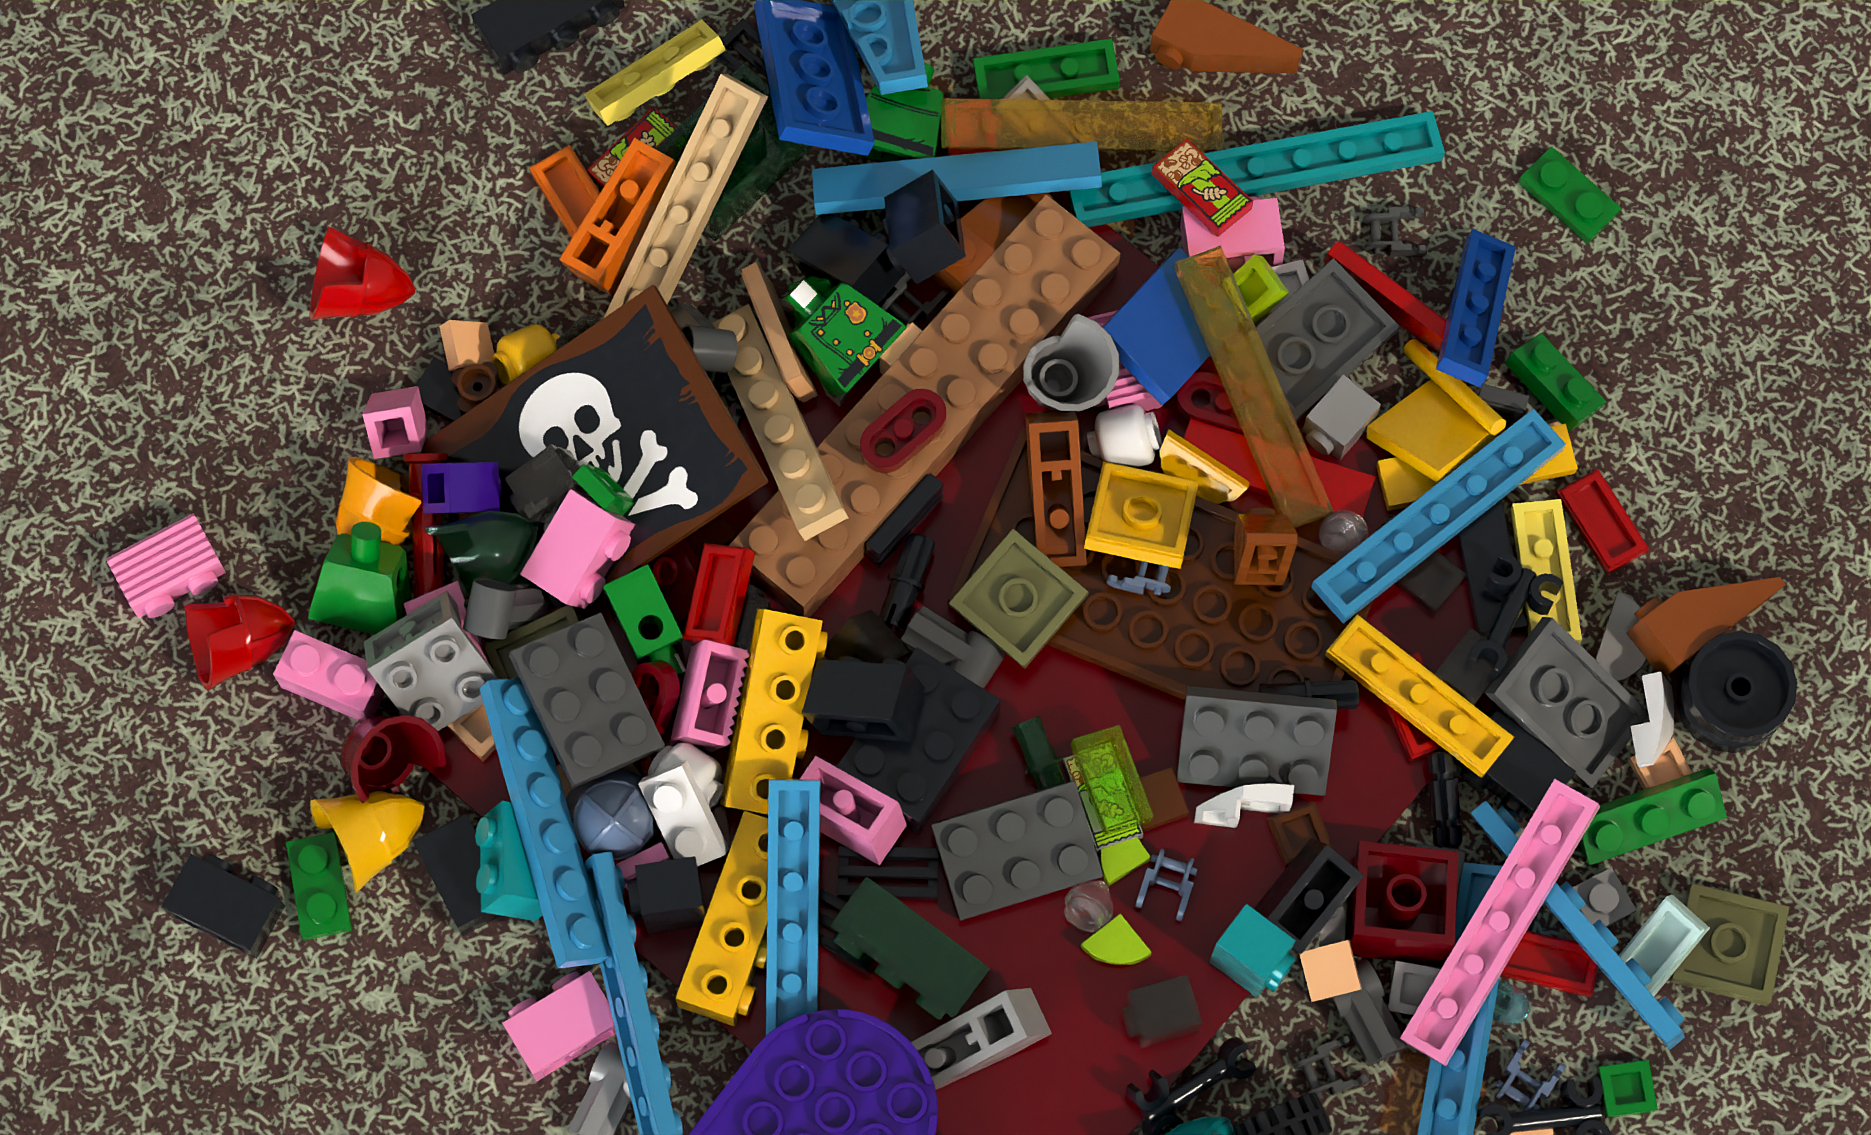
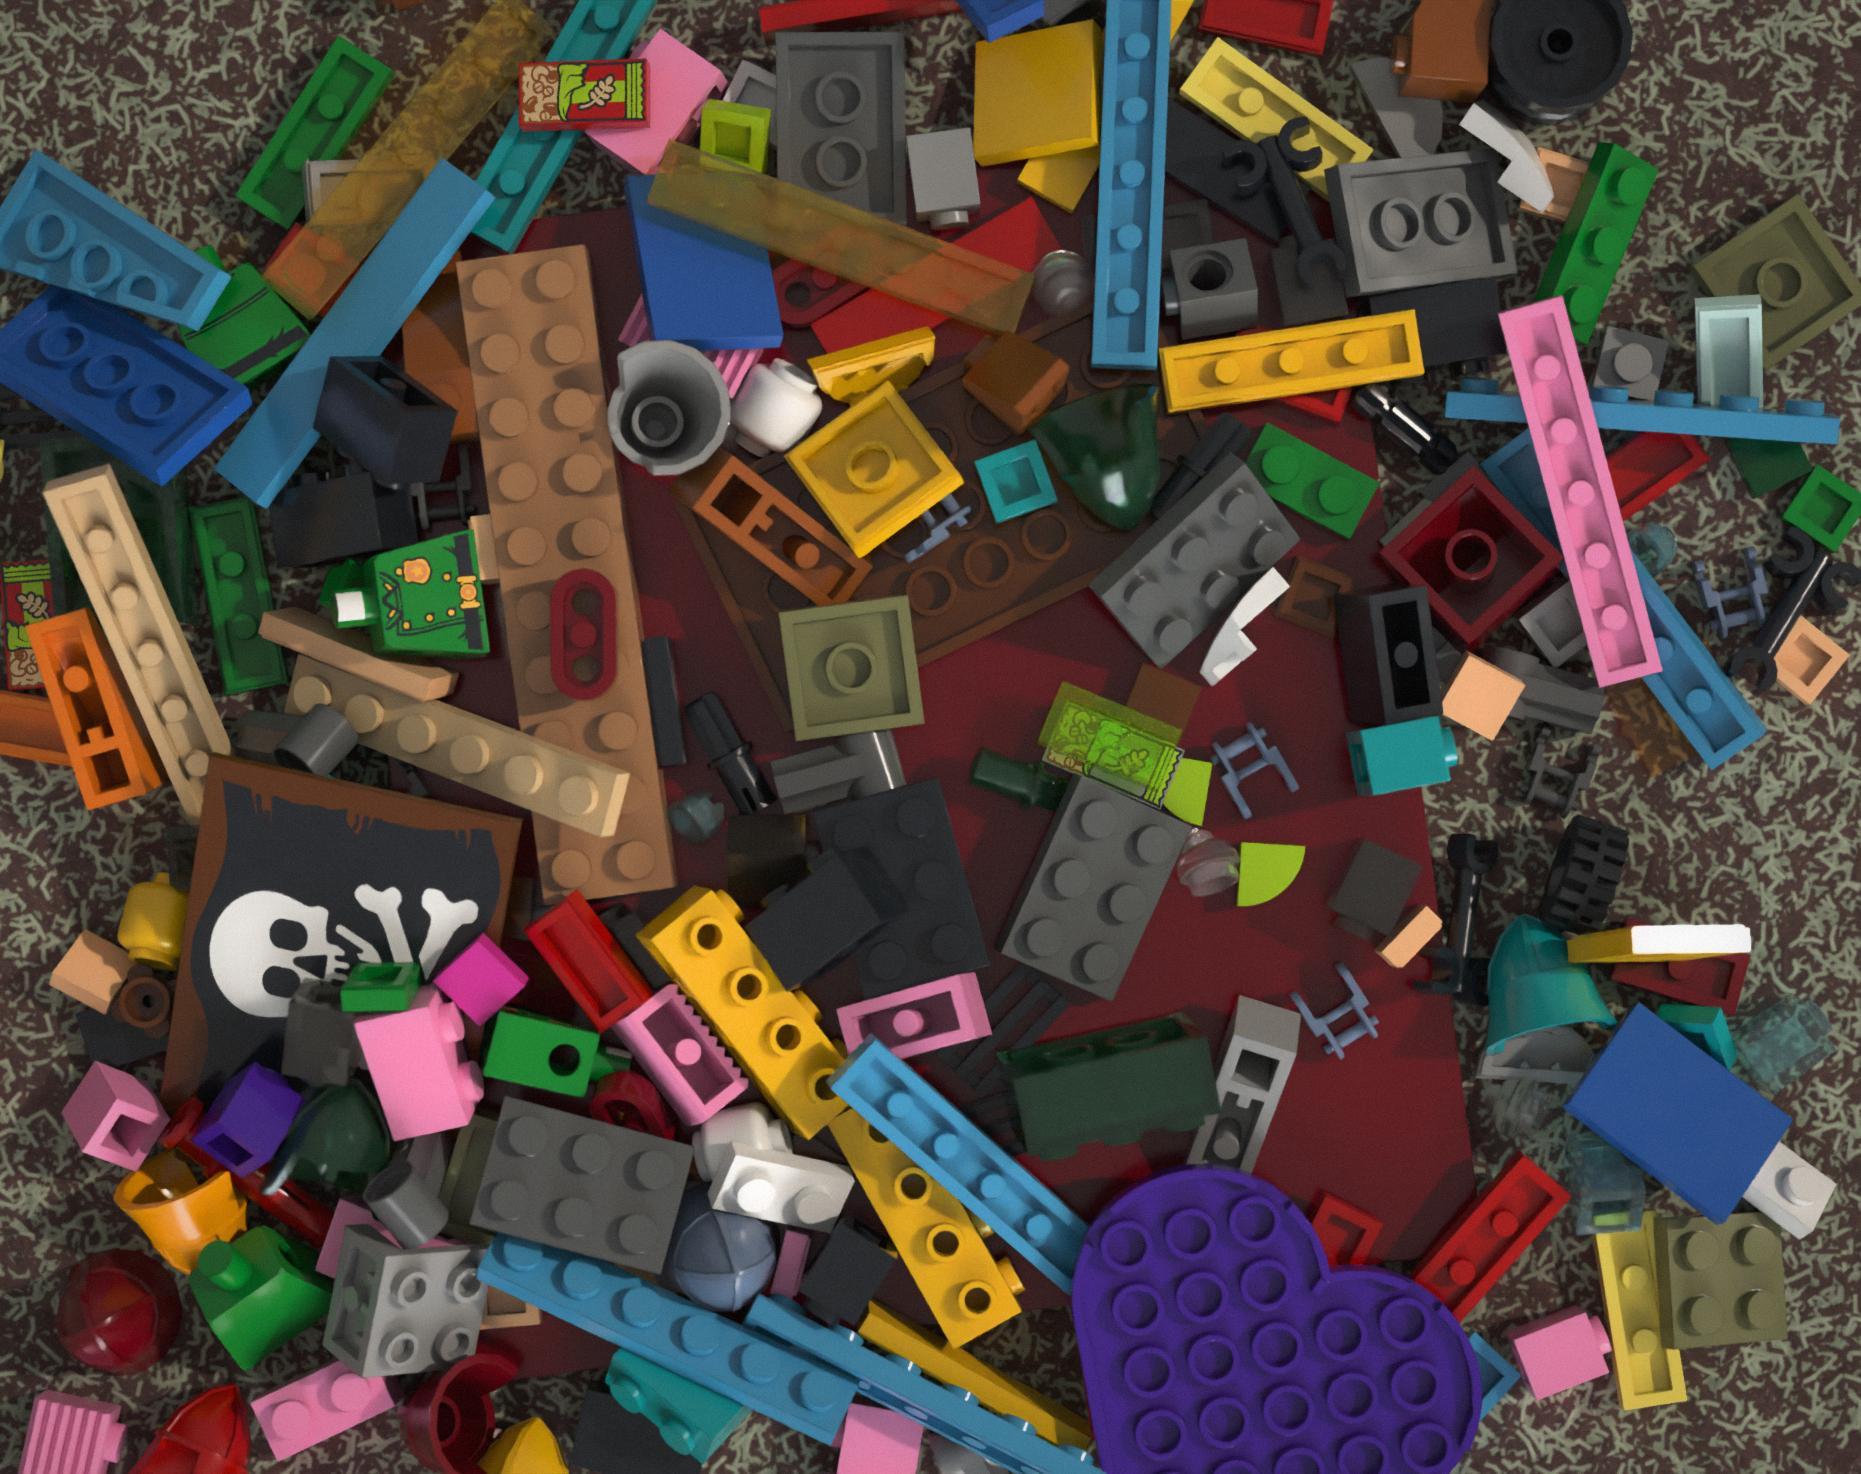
camera: 45 degrees left, 15 degrees up
(280, 524) = (119, 1312): none -> dark red helmet
(656, 541) = (481, 979): none -> dark pink tile
(662, 1004) = (958, 1367): none -> yellow tile
(757, 240) = (238, 594): none -> green tile
(854, 595) = (697, 817): none -> clear light blue hinge
(1088, 1064) = (1355, 1001): none -> sand blue piece
(1154, 1057) = (1409, 936): none -> light nougat tile
(1207, 599) = (1015, 481): none -> teal plate
(1269, 634) = (1107, 450): none -> clear green helmet
(1362, 772) = (1310, 481): none -> green plate
(1417, 617) = (1232, 287): none -> dark grey brick
(1455, 388) = (1031, 35): yellow bar -> none
(1623, 1030) = (1767, 463): none -> dark green tile

